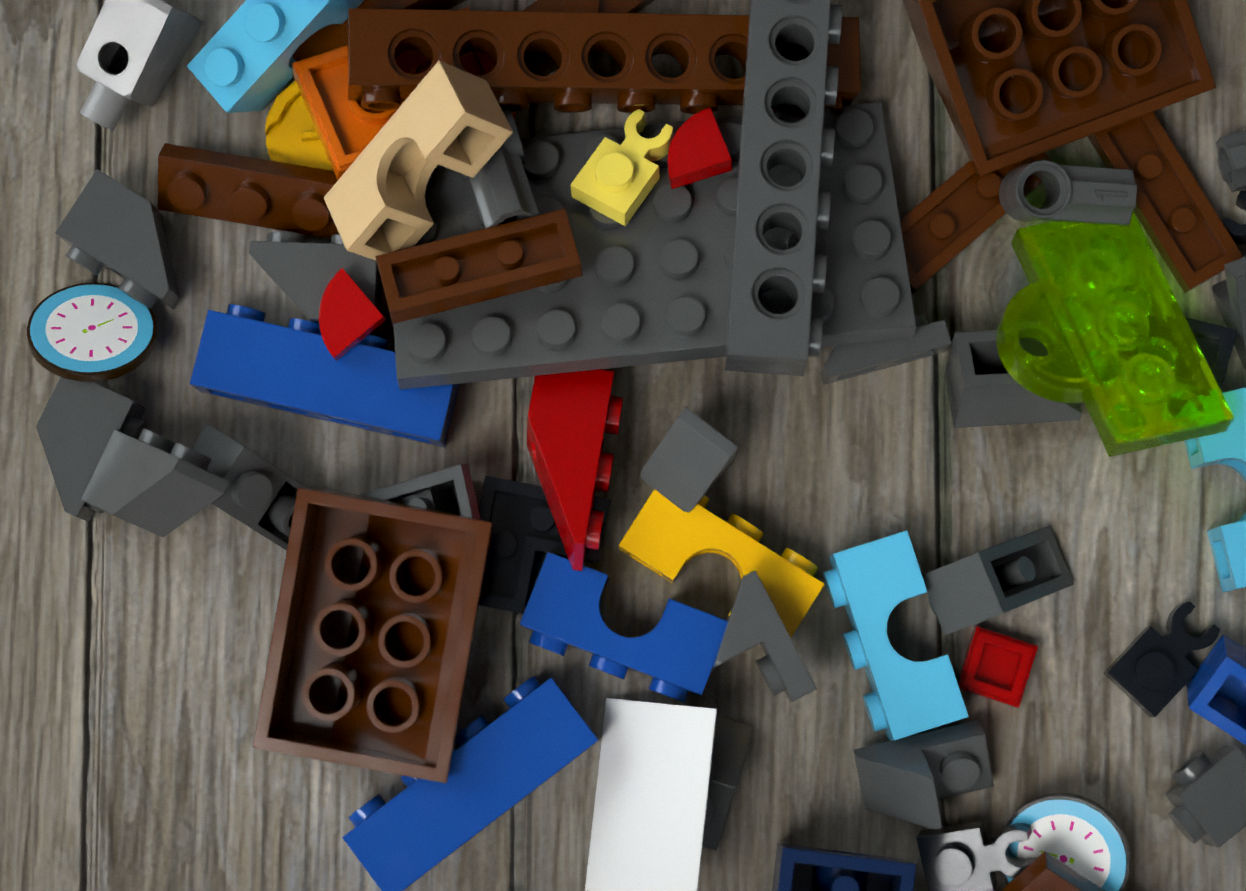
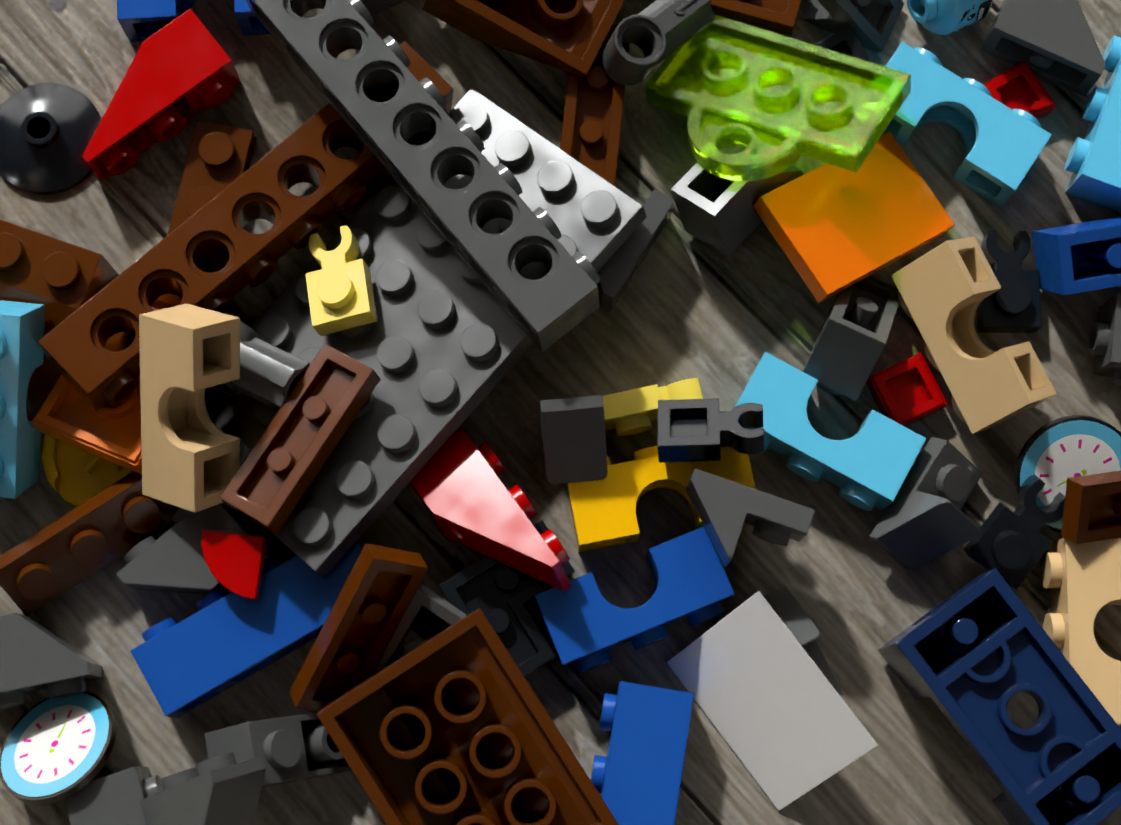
camera: 50 degrees left, 5 degrees down
(393, 450) = (358, 625): none -> reddish brown plate
(697, 151) = (379, 226): red tile -> none
(764, 480) = (636, 408): none -> light yellow plate
(794, 542) = (698, 429): none -> black plate
(1069, 494) = (850, 223): none -> orange tile
(1092, 621) = (942, 298): none -> tan arch

